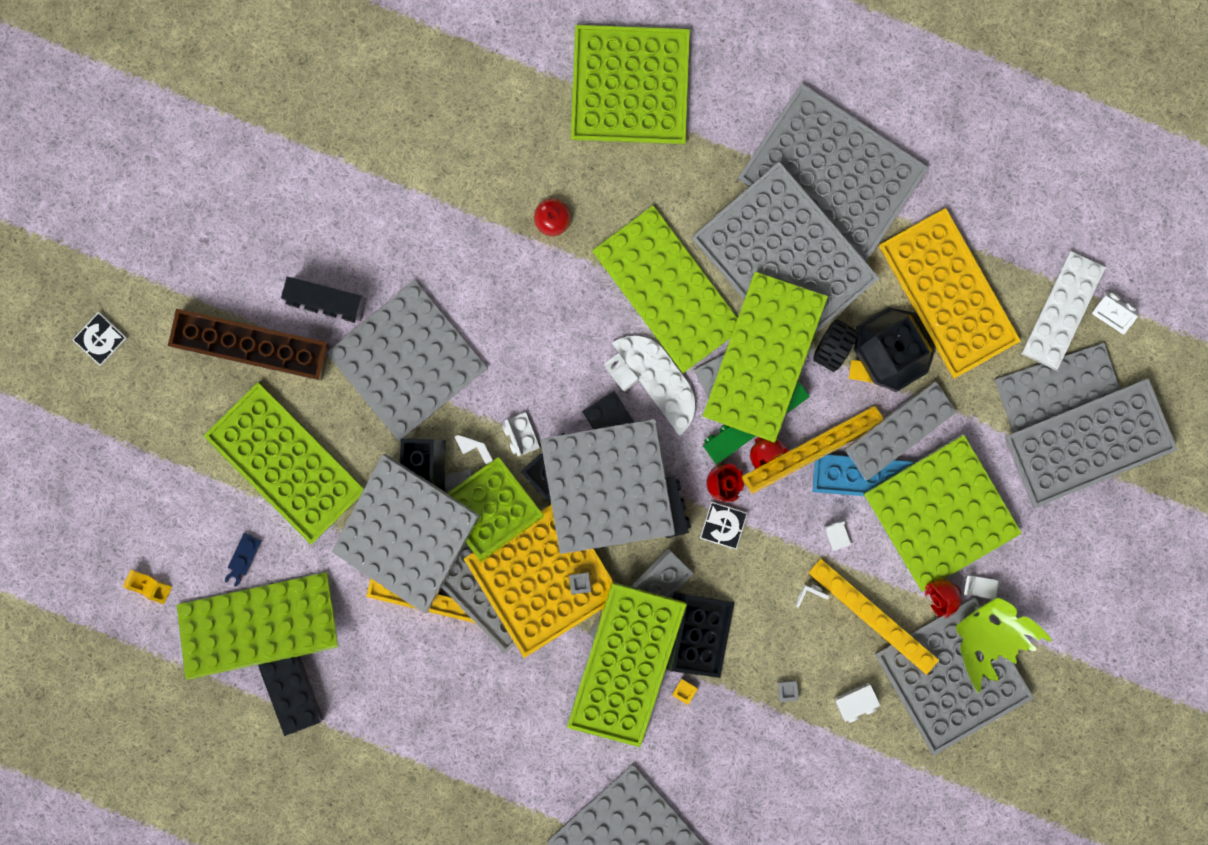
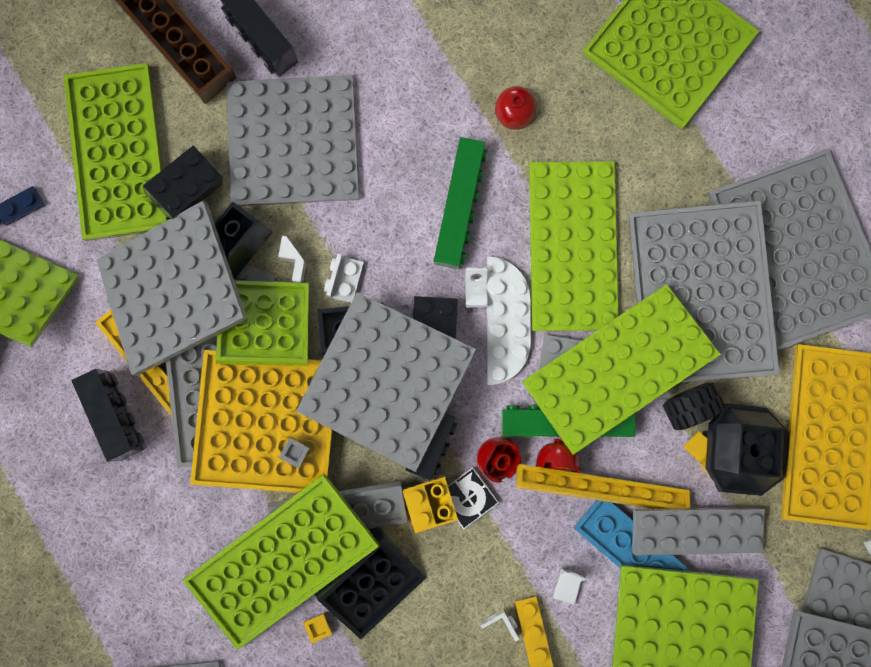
camera: 40 degrees right, 5 degrees down
(355, 452) = (183, 183): none -> black brick
(427, 653) = (108, 415): none -> black brick
(562, 316) = (459, 203): none -> green brick
(700, 549) = (429, 504): none -> yellow slope

